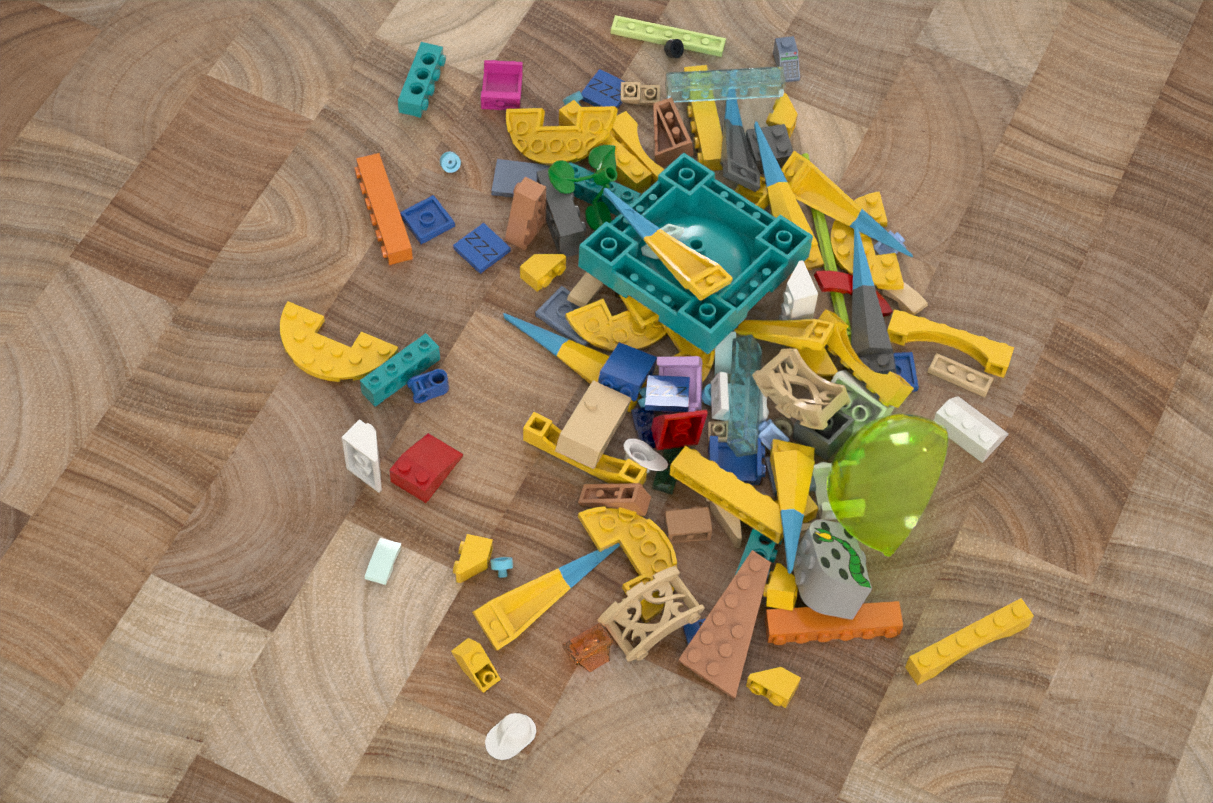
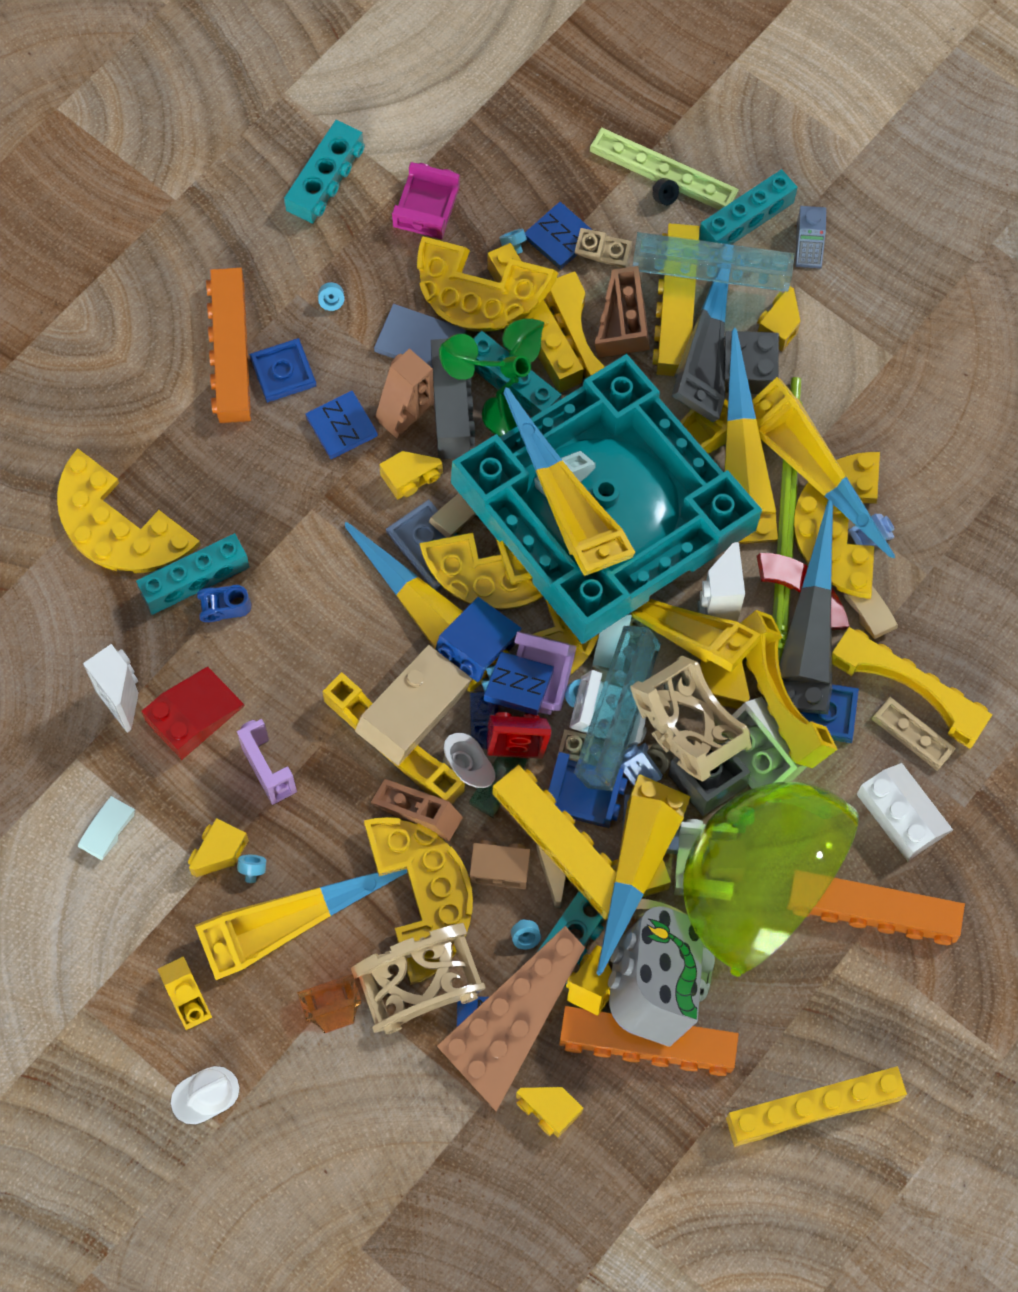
camera: 15 degrees right, 10 degrees up
(501, 501) = (276, 785): none -> lavender panel
(721, 569) = (525, 934): none -> medium azure tile
(741, 46) = (749, 210): none -> teal brick
(983, 496) = (891, 911): none -> orange brick

